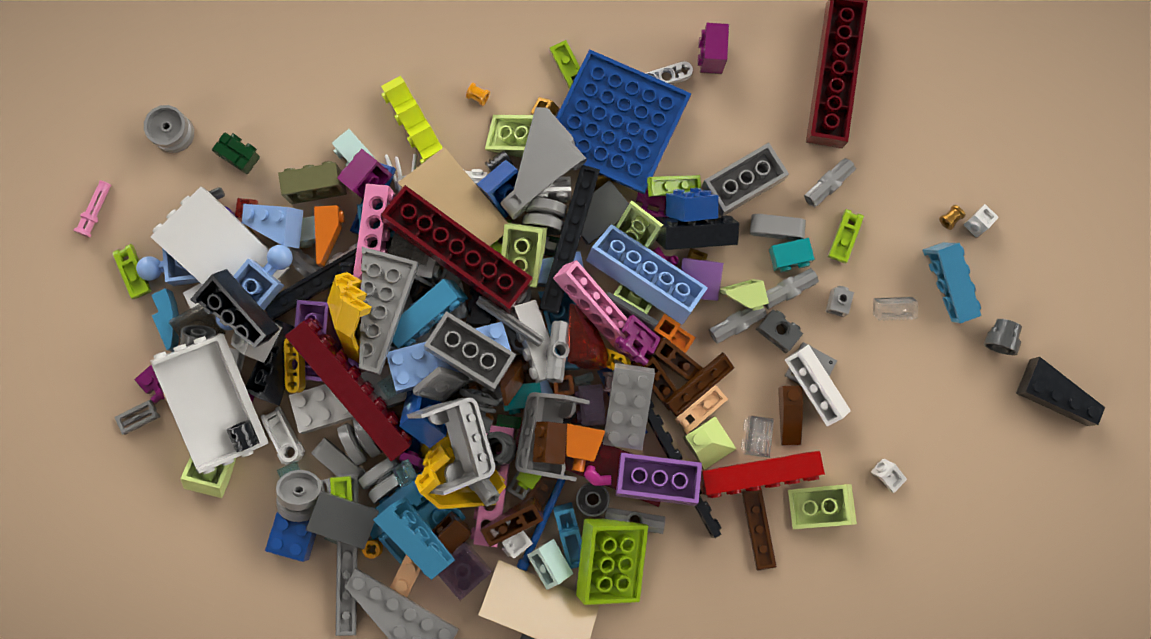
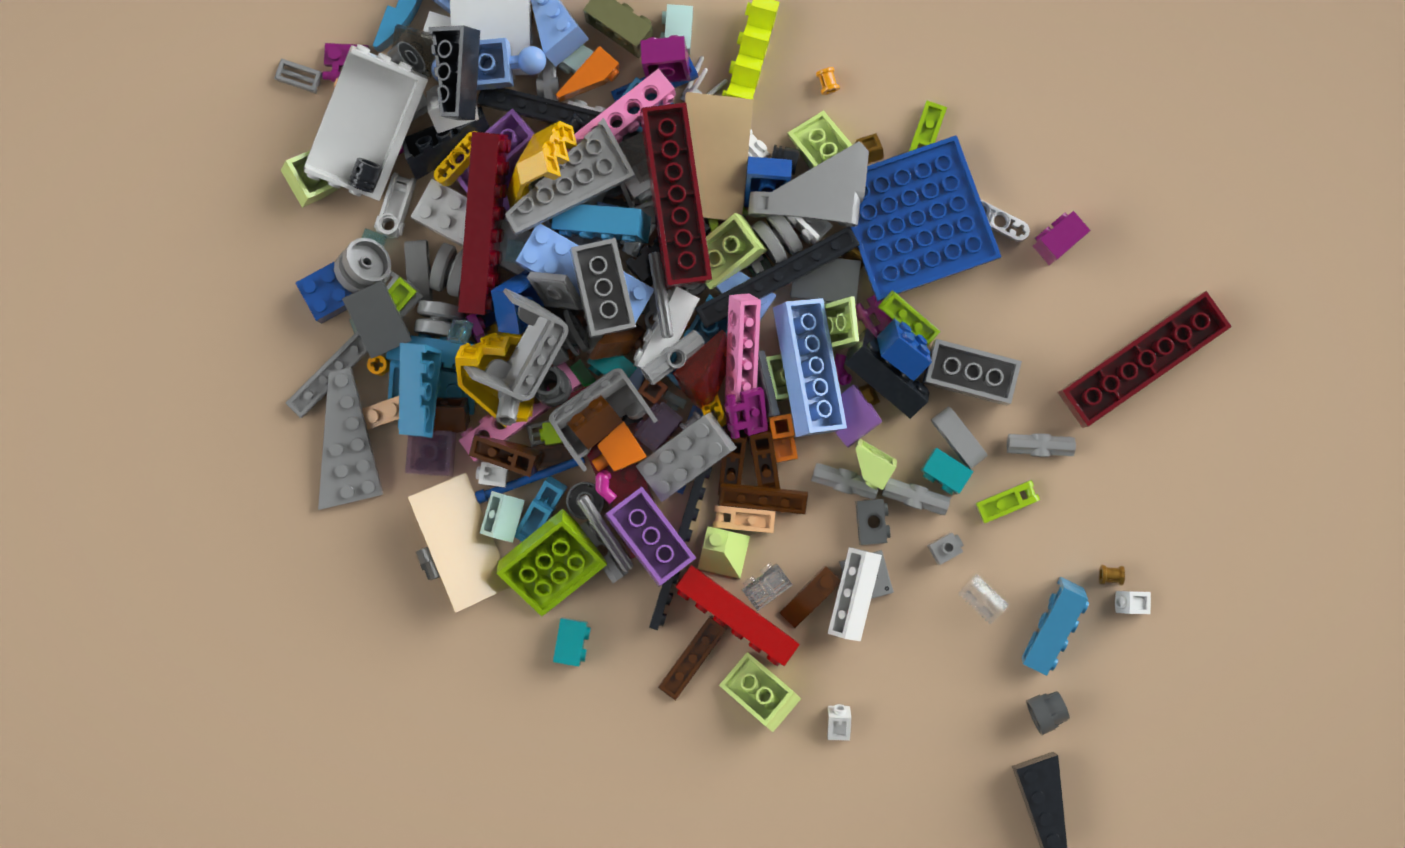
camera: 50 degrees right, 5 degrees up
(625, 506) = (605, 533): none -> light grey axle
(674, 598) = (570, 642): none -> teal brick

